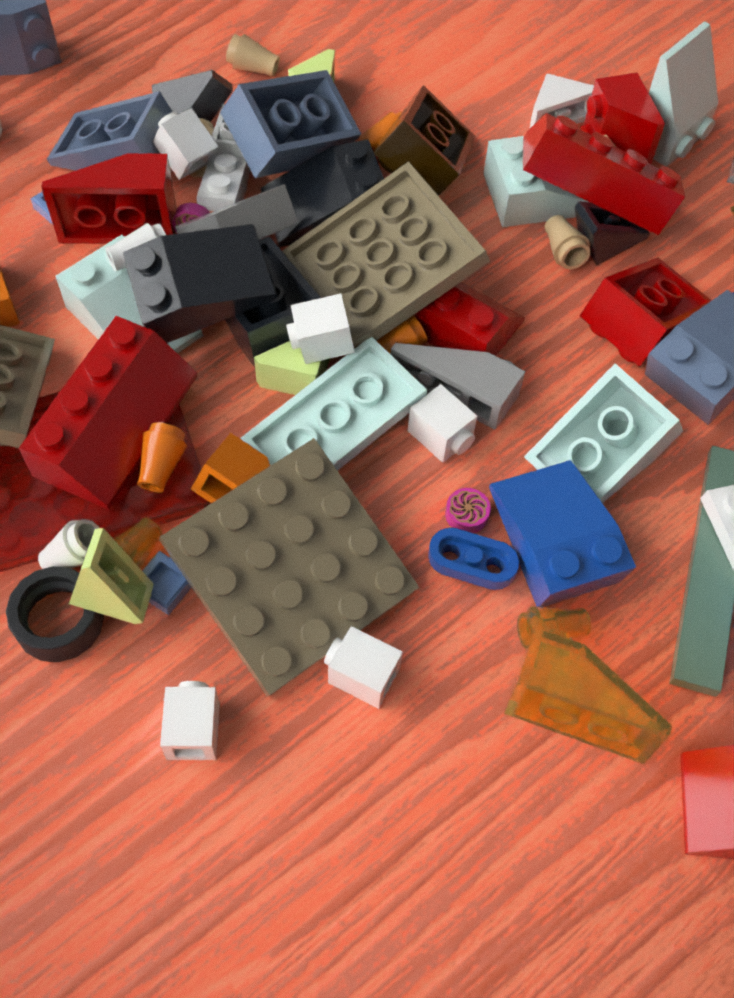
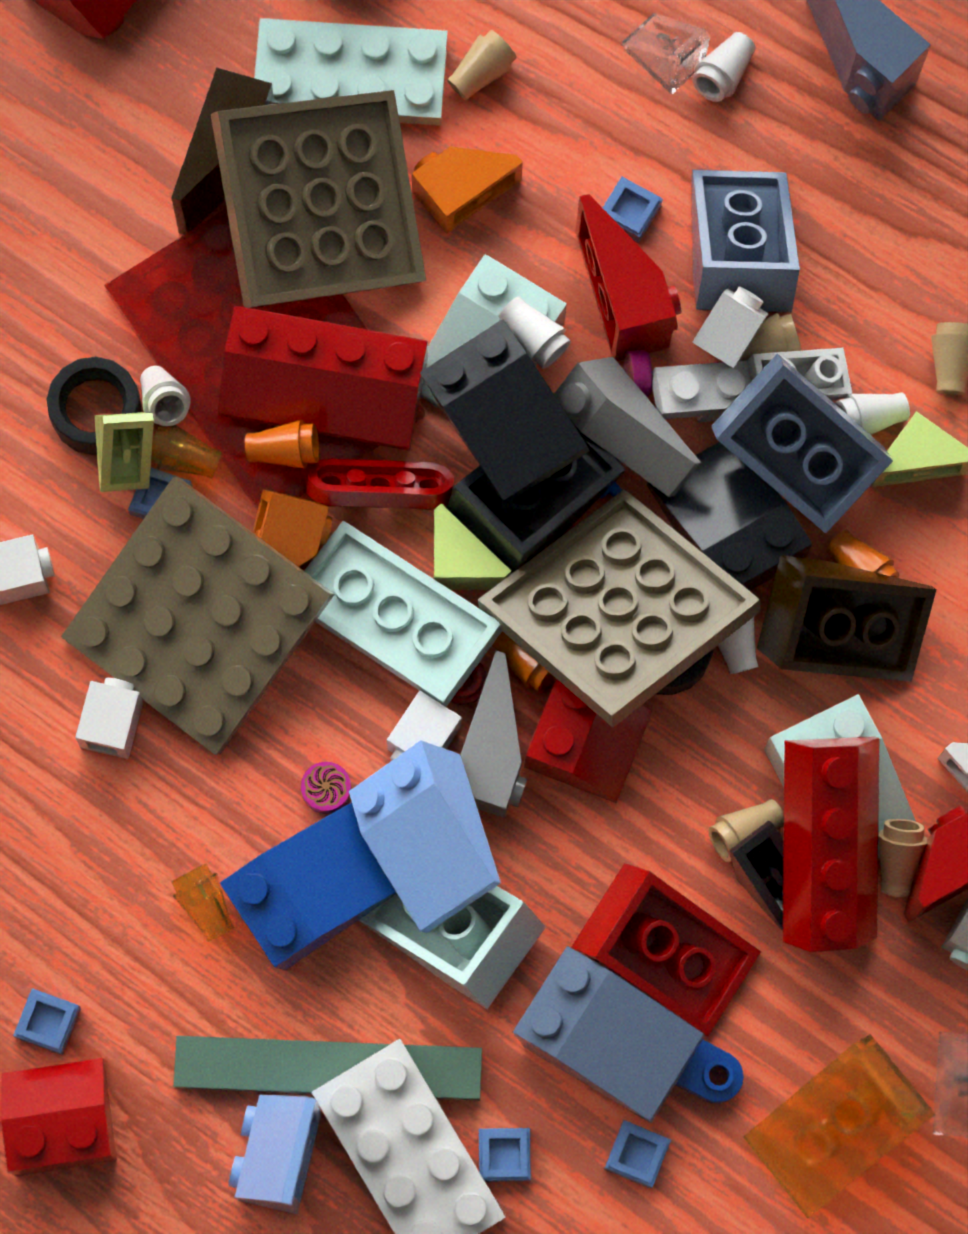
camera: 75 degrees right, 15 degrees up
(201, 92) = (832, 307): slope -> none
(217, 404) = (379, 483): none -> red plate
(320, 329) = (480, 564): white brick -> none
(473, 555) = (261, 804): blue plate -> none
(543, 422) = (426, 833): none -> light blue slope
(580, 697) = (119, 925): clear yellow slope -> none
(641, 796) = (47, 1021): none -> medium blue tile

